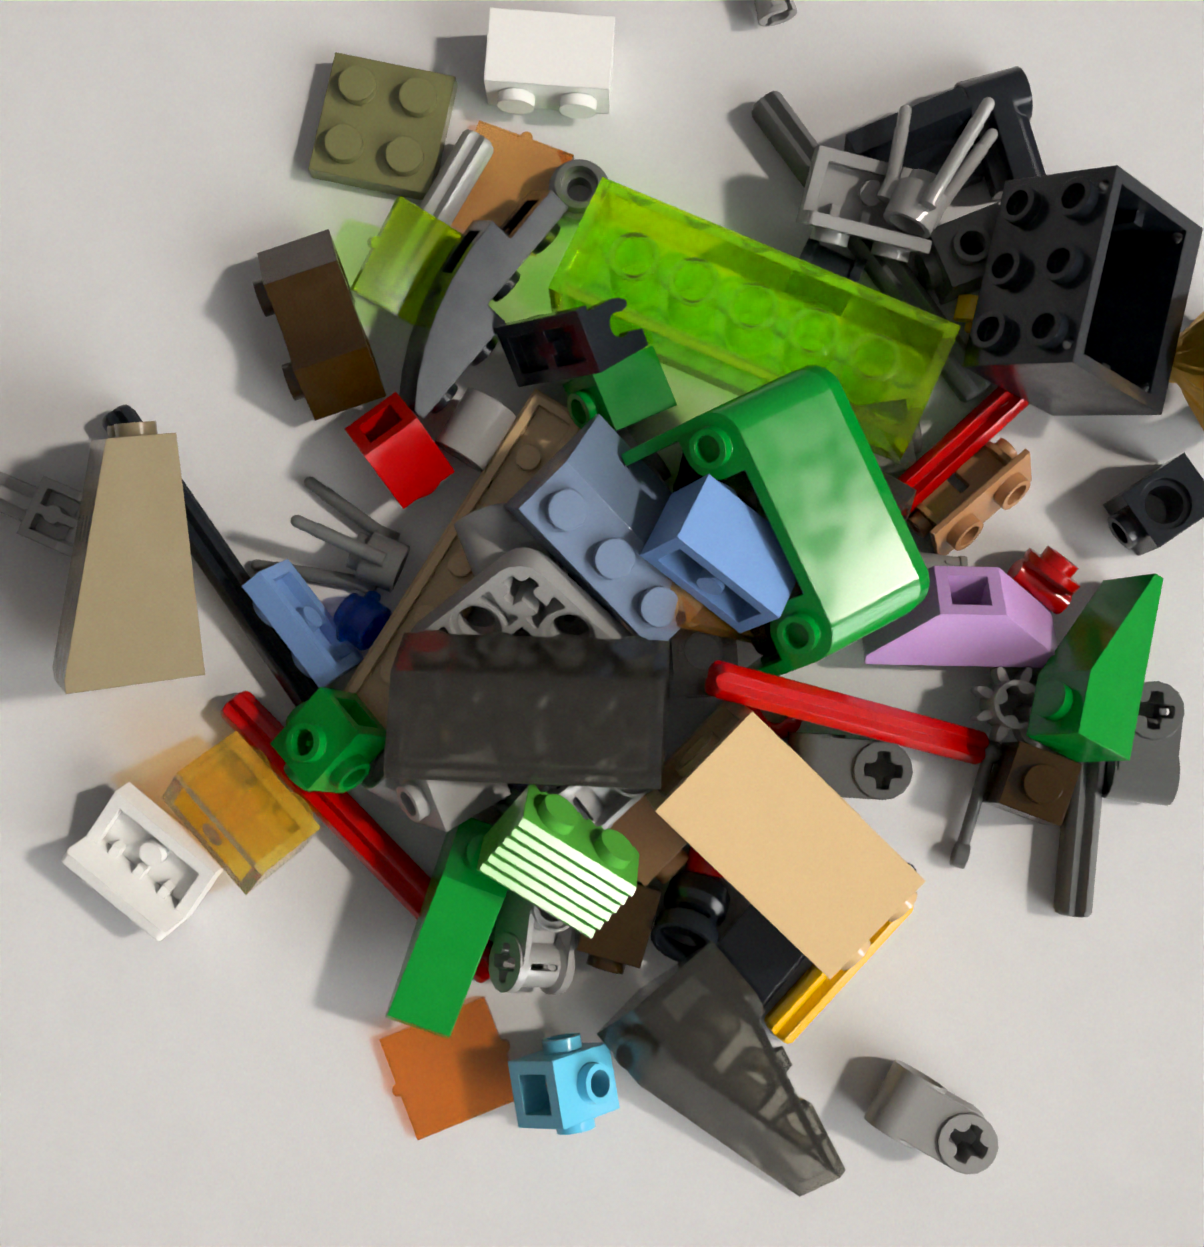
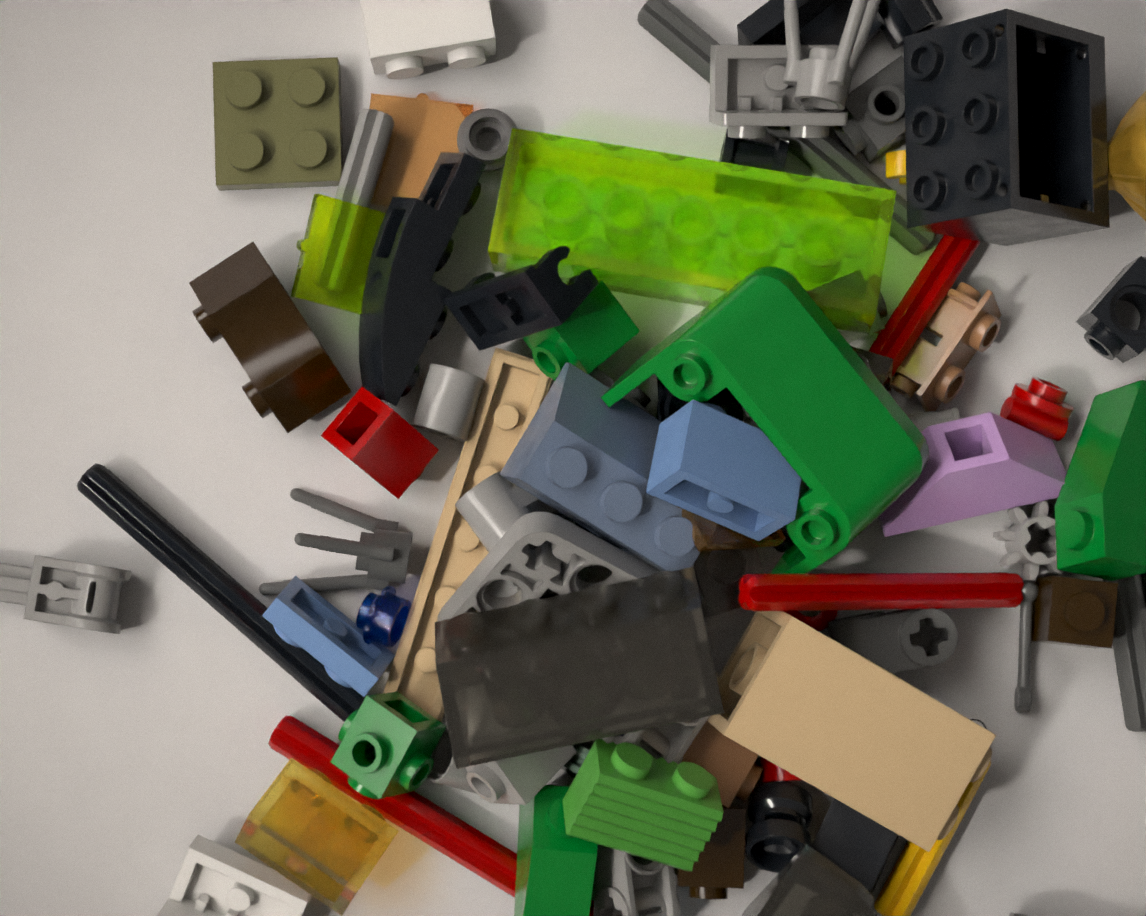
camera: 20 degrees left, 0 degrees up
(130, 571) = (151, 628): dark tan slope -> none

